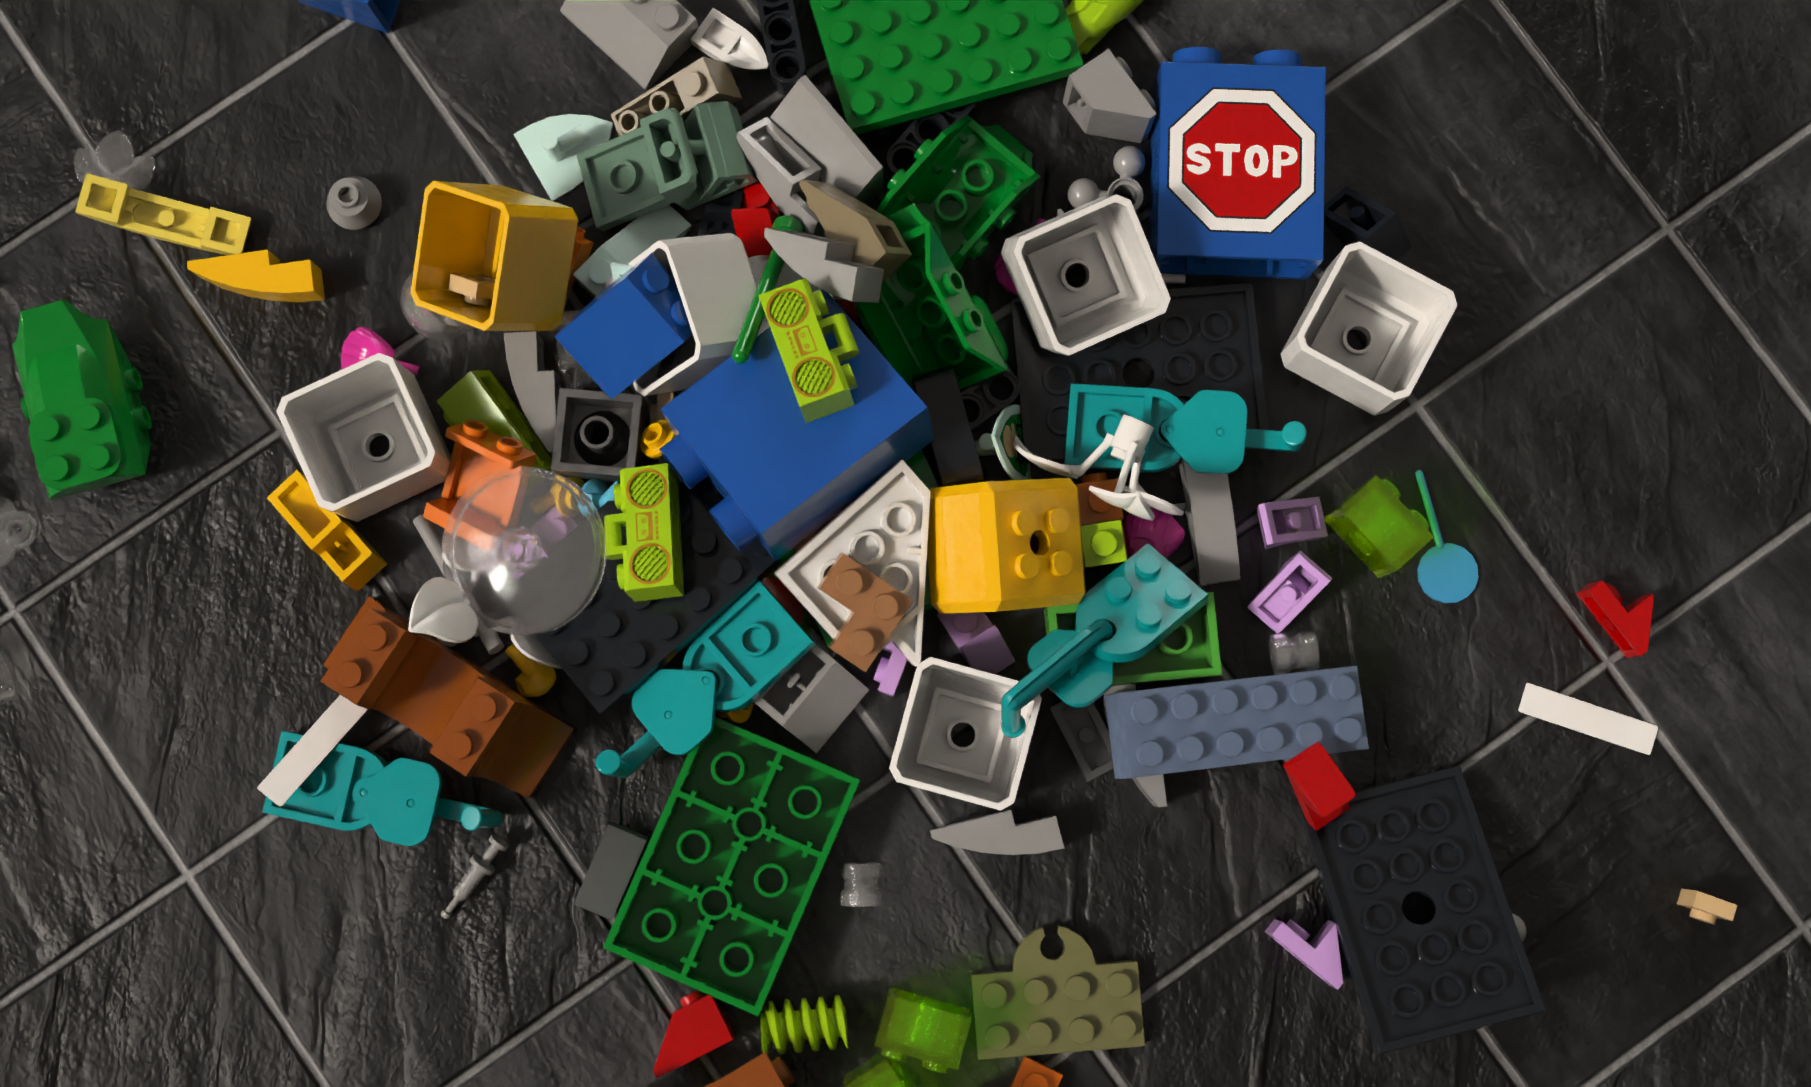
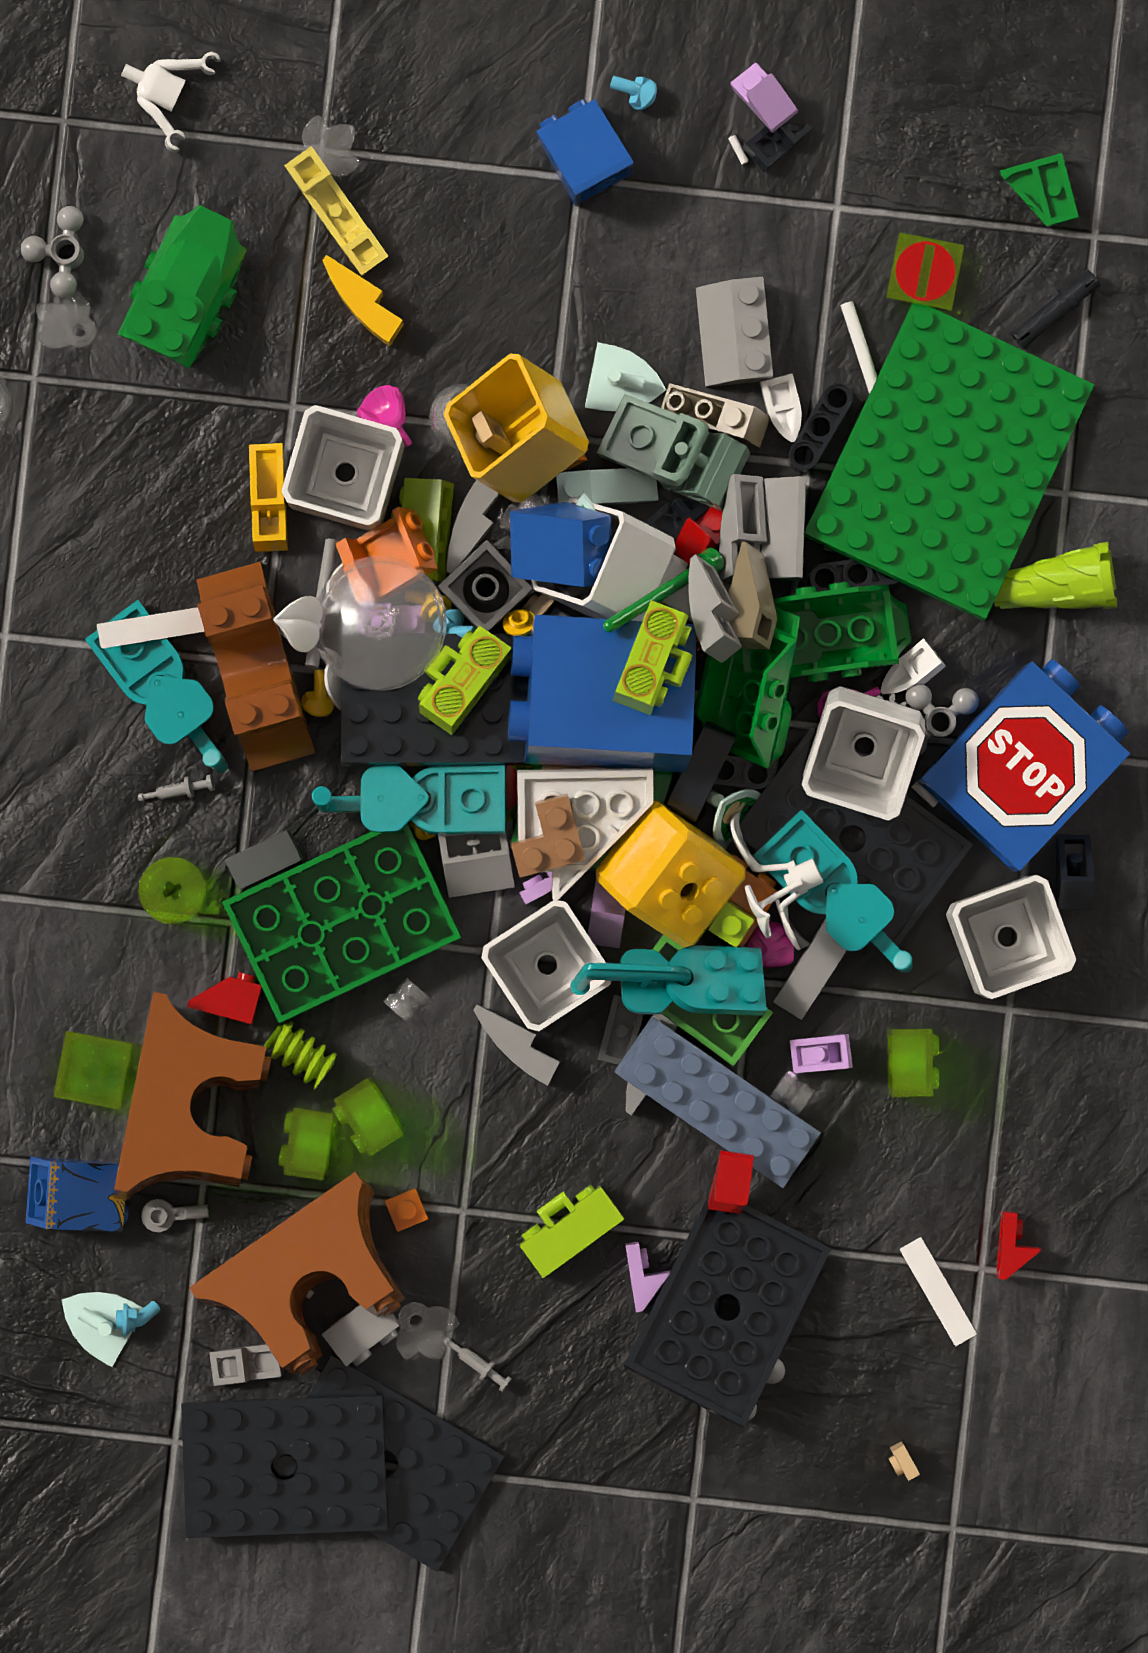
camera: 35 degrees right, 5 degrees up
(354, 202) = (471, 299): light grey cone -> none
(527, 987) = (155, 883): none -> clear neon green brick
(1056, 1002) = (462, 1173): olive plate -> none
(1059, 168) = (914, 668): none -> white plate
(1108, 101) = (982, 653): light grey slope -> none
(1210, 965) = (562, 1240): none -> lime piece
(1291, 521) = (863, 1012): lavender slope -> none
(1446, 570) = (934, 1126): dark azure piece -> none

